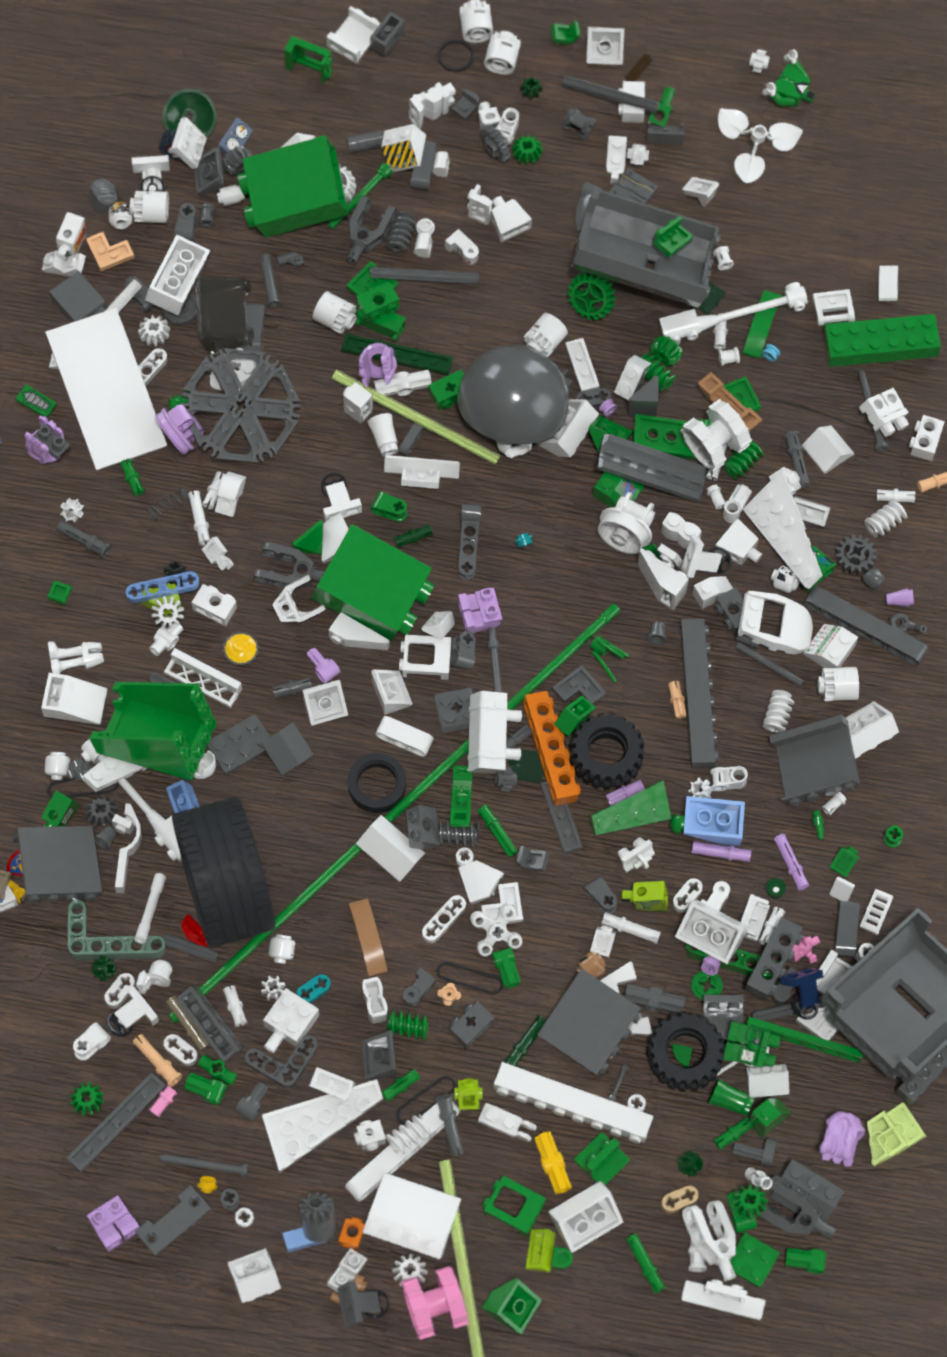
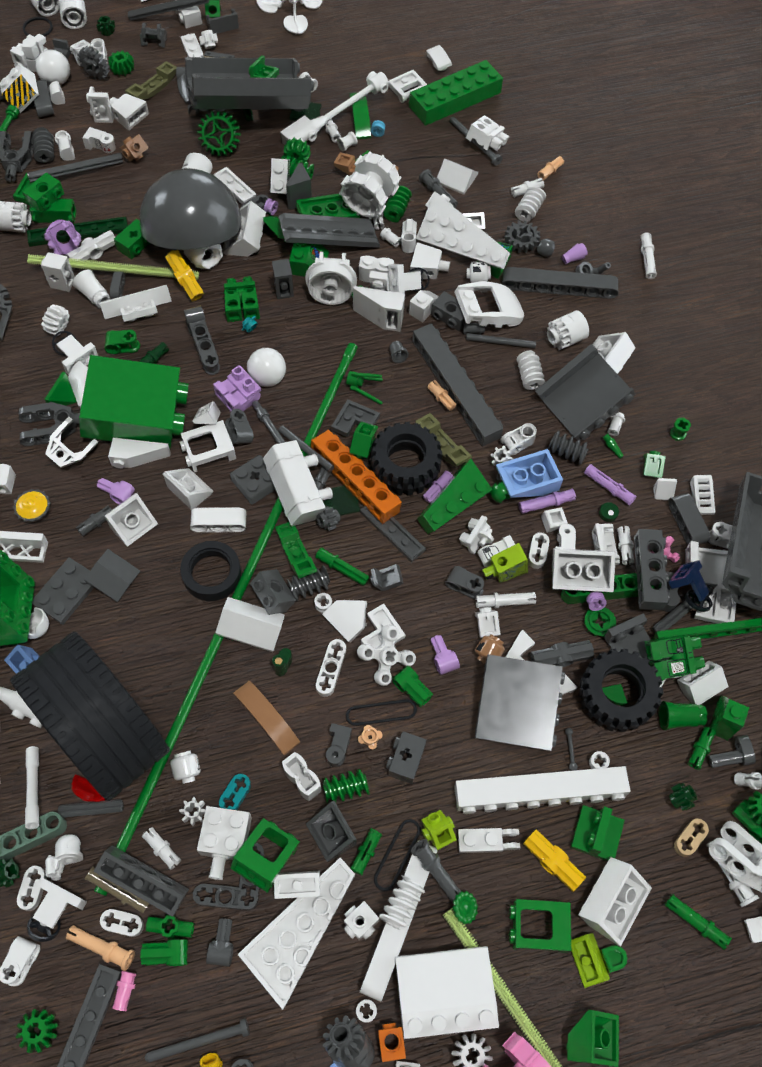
camera: 25 degrees left, 5 degrees down
(306, 1056) = (256, 867): none -> green window
(334, 457) = (55, 319): none -> white gear
(350, 1203) = (360, 1014): none -> white bush
(403, 895) = (282, 661): none -> dark green piece
(449, 131) = (52, 67): none -> white piece
(460, 1164) = (465, 907): none -> green piece
(482, 459) = (184, 275): none -> yellow piece
(494, 274) = (133, 147): none -> medium nougat brick
(517, 700) = (307, 449): none -> dark grey bar
(518, 597) = (266, 367): none -> white piece
(521, 1048) = (465, 755): dark green pin -> none
(531, 501) = (239, 293): none -> green hips
(547, 955) = (445, 659): none -> lavender axle
(552, 191) = (155, 84): none -> olive slope
(578, 504) = (283, 279): none -> dark grey brick
(645, 876) = (488, 551): none -> white leg
(653, 753) = (451, 452): none -> olive slope
(702, 189) = (269, 44): white slope -> none
(717, 872) = (553, 519): none -> white slope
(770, 808) = (568, 447): none -> dark grey piece
(831, 646) = (542, 306): white slope -> none
(929, 438) = (527, 141): white brick -> none

